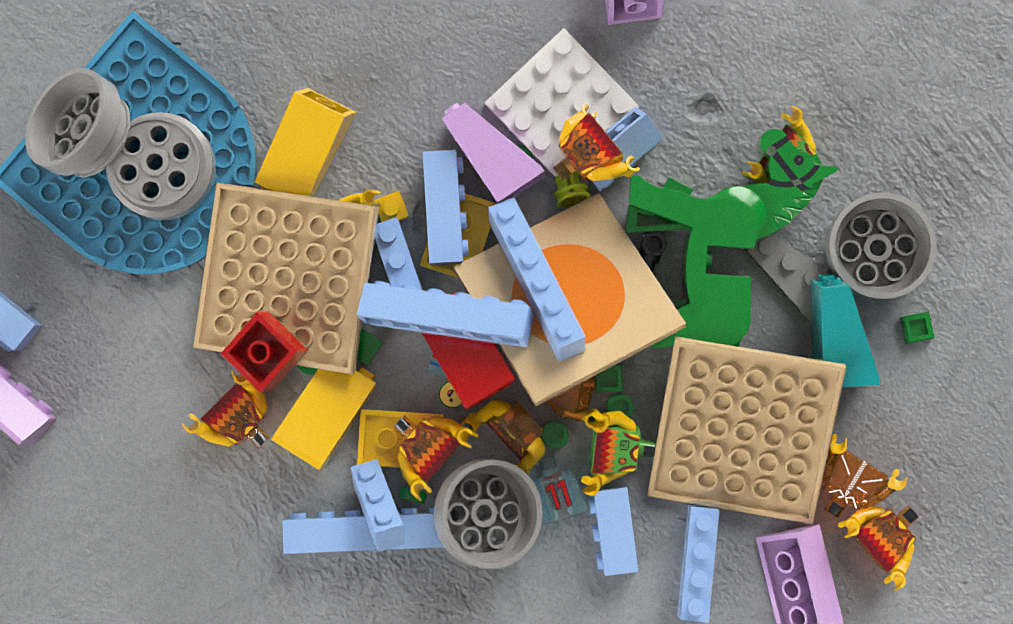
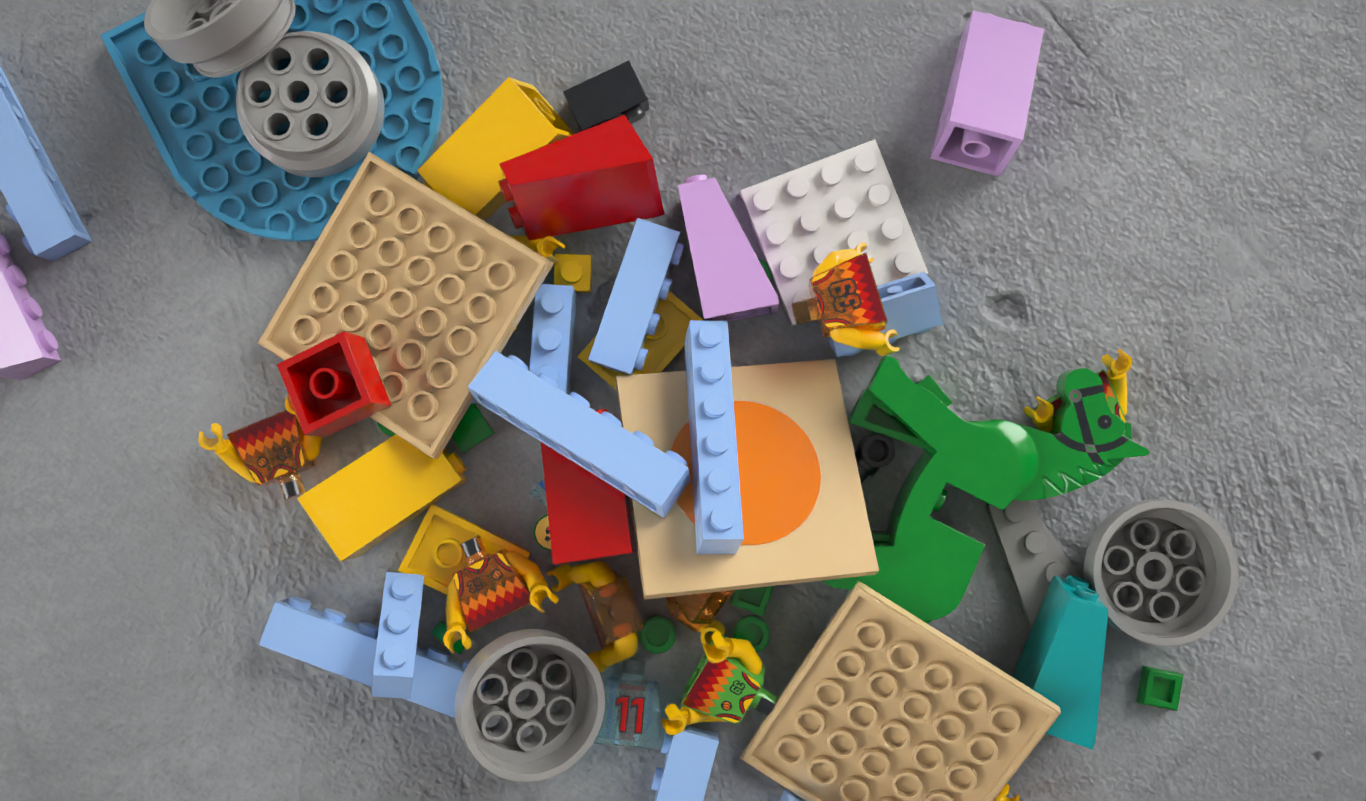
camera: 20 degrees right, 0 degrees up
(366, 78) = (607, 97): none -> black brick
(374, 143) = (582, 182): none -> red slope
(570, 194) = (799, 346): lime piece -> none

